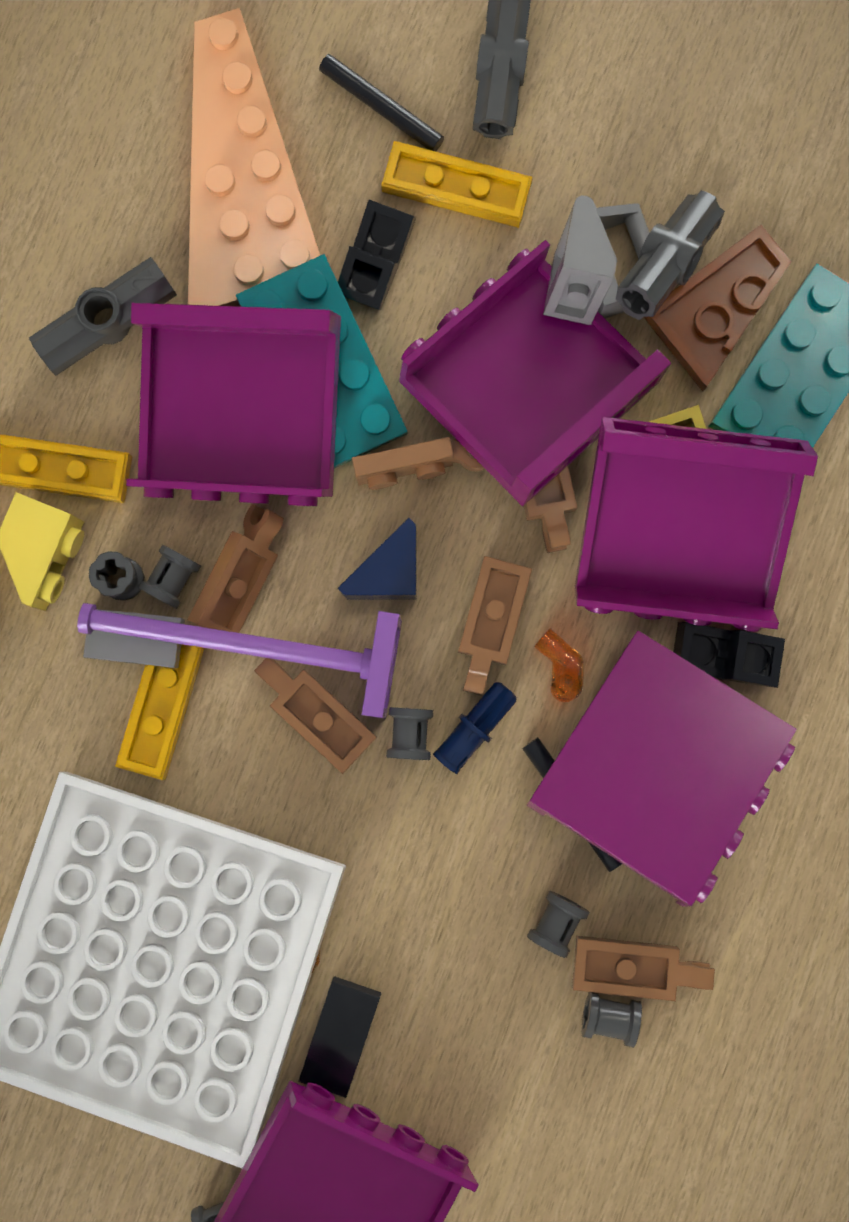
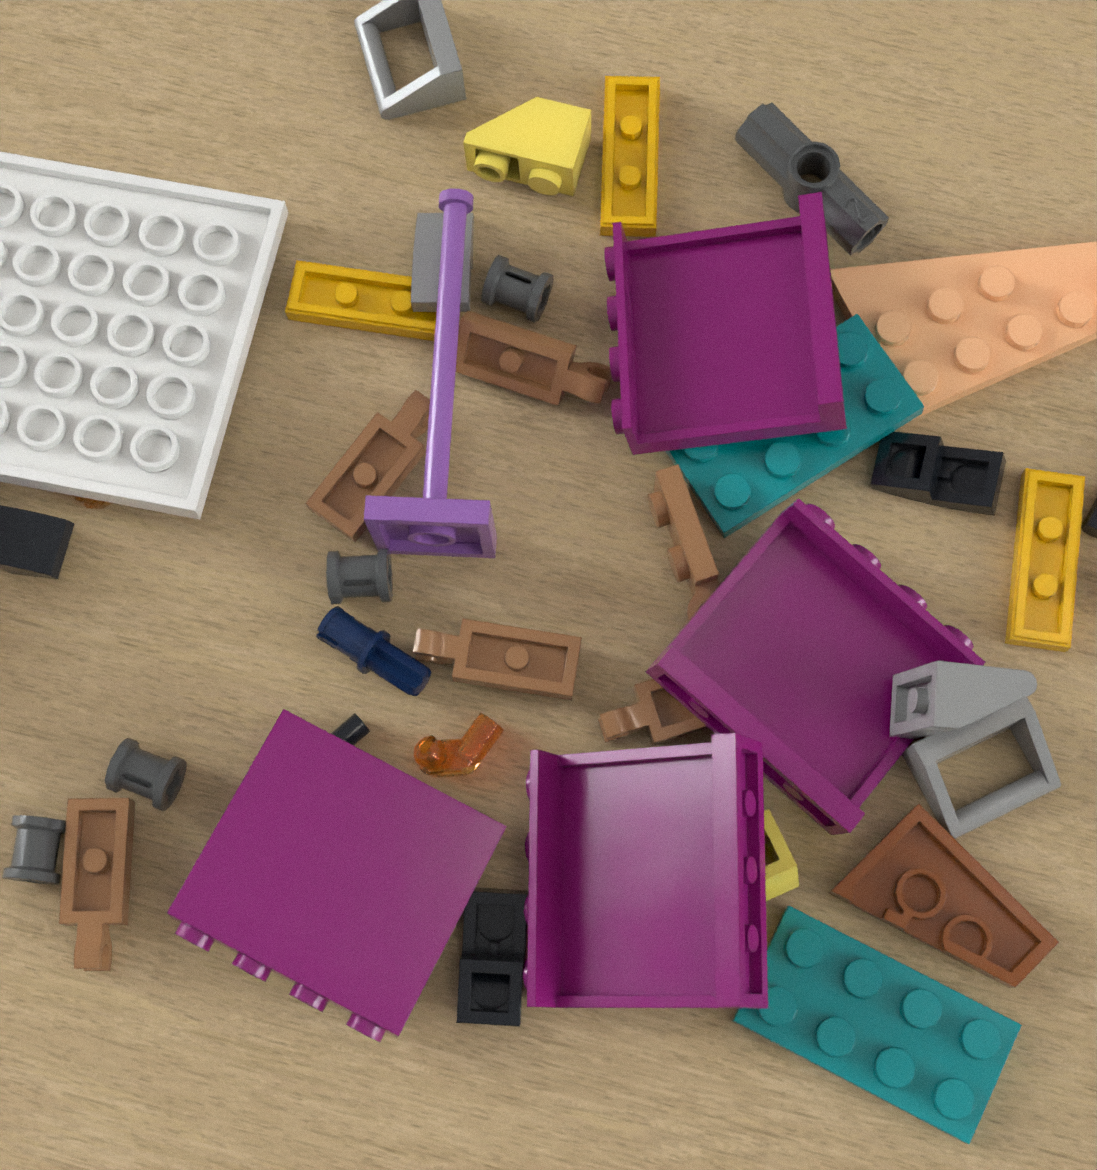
camera: 85 degrees right, 10 degrees down
(106, 566) = (521, 220): dark grey bush -> none
(388, 571) = (553, 530): dark blue slope -> none
(669, 255) = (994, 821): dark grey piece -> none

